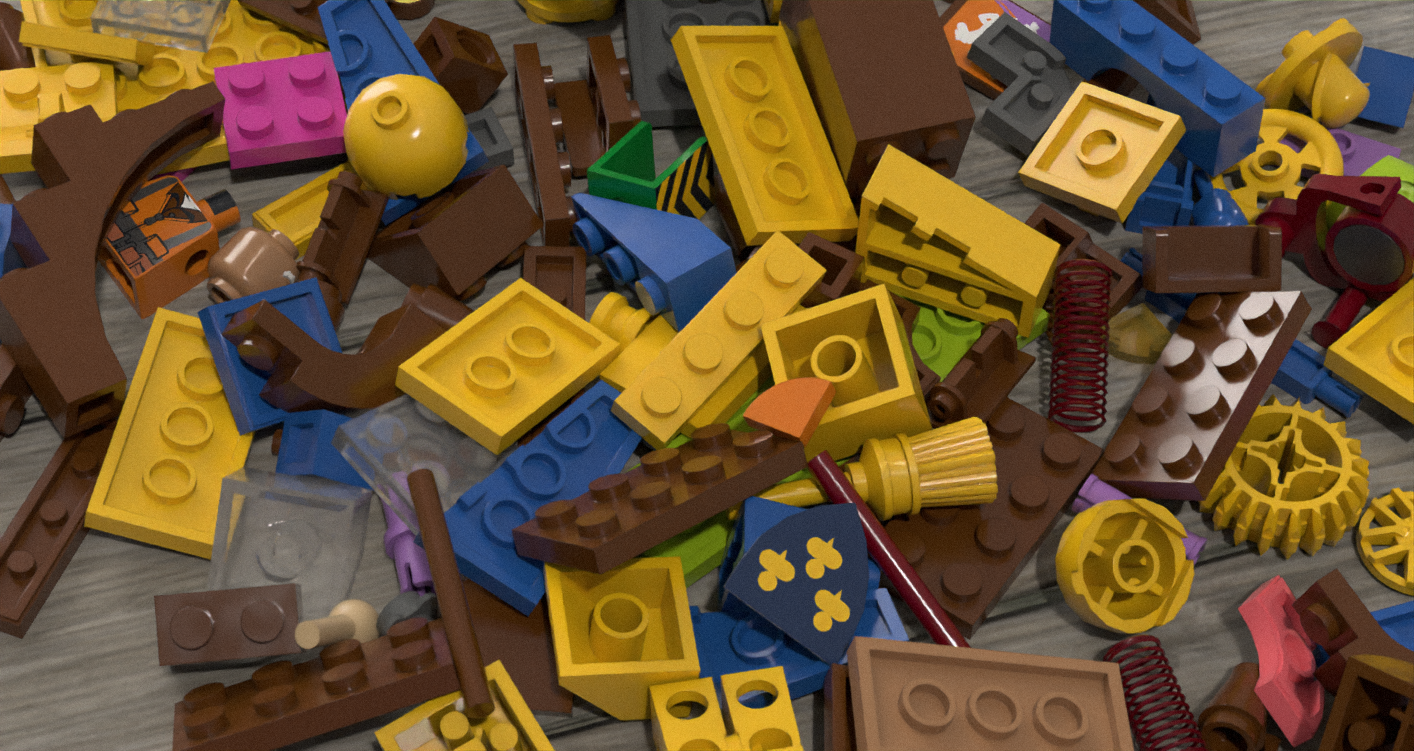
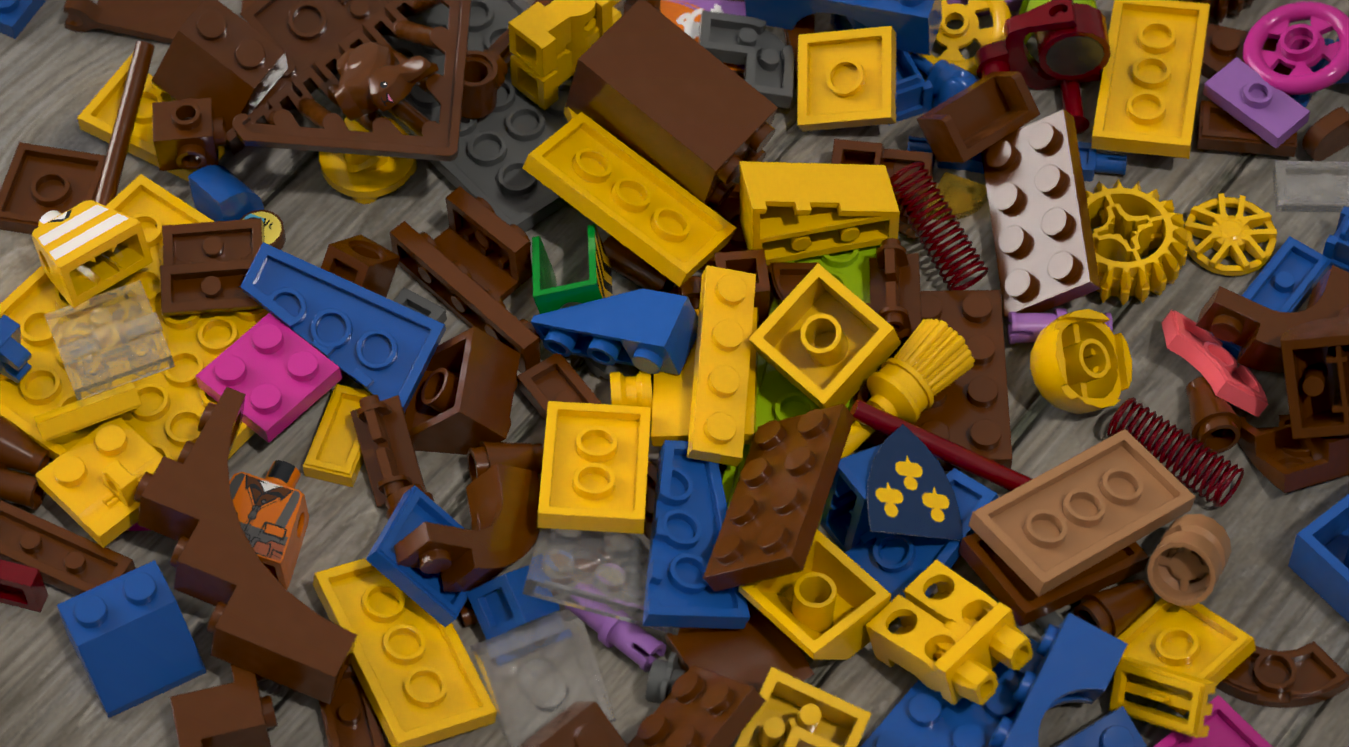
camera: 30 degrees left, 5 degrees up
(252, 264) = (349, 508): medium nougat head -> none
(345, 621) = (627, 710): tan bar -> none
(406, 136) = (385, 346): yellow cylinder -> none
(450, 594) = (706, 642): reddish brown bar -> none
(791, 408) = (817, 385): orange tile -> none

